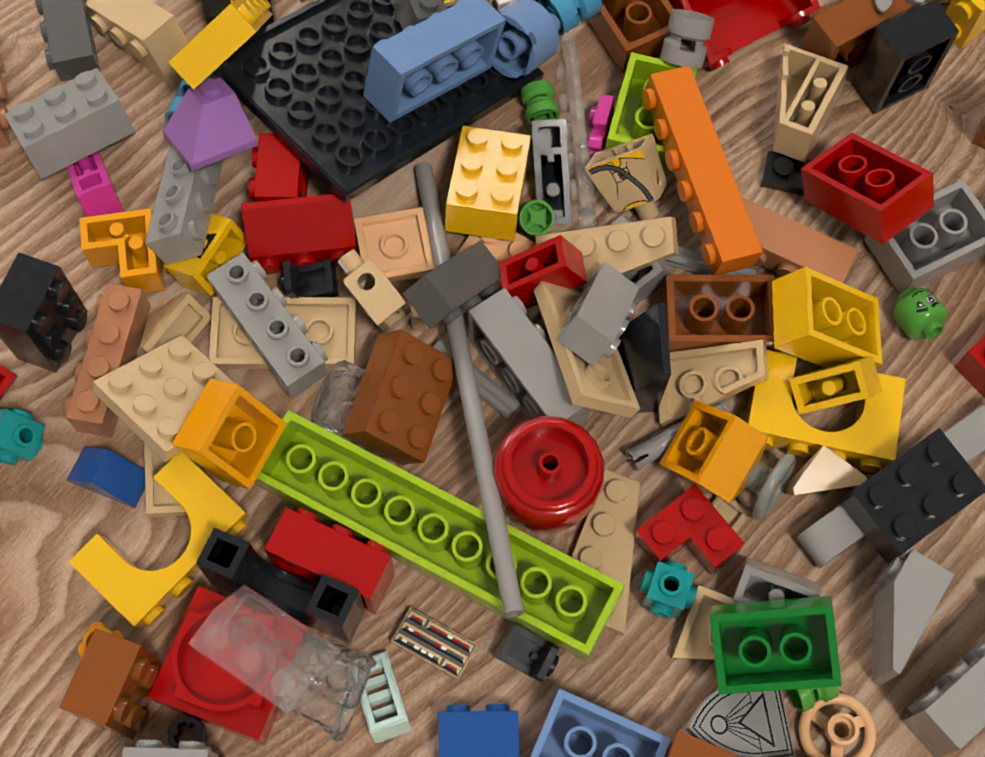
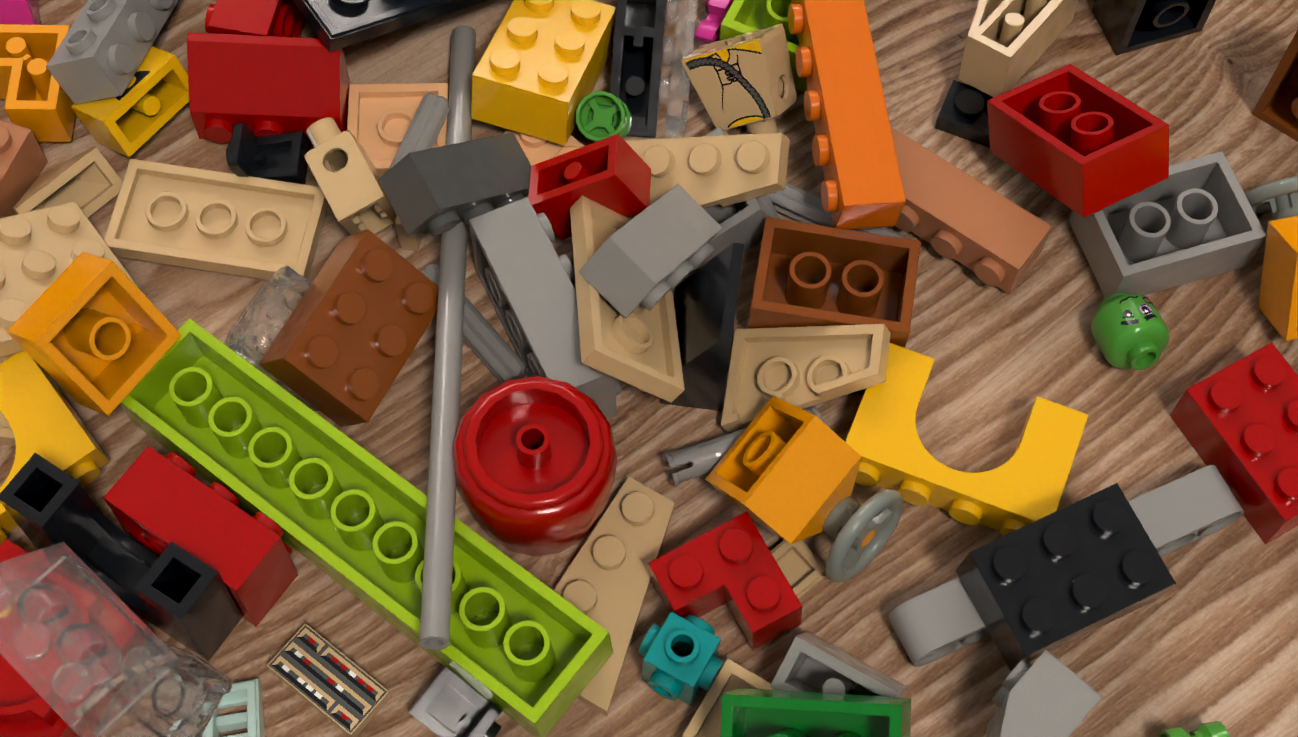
camera: 10 degrees right, 5 degrees down
(268, 324) = (193, 204): light grey brick -> none
(413, 252) = (424, 126): none -> light grey axle
(824, 319) = (984, 317): yellow brick -> none
(824, 473) = (941, 529): tan slope -> none
(836, 385) = (981, 404): yellow brick -> none

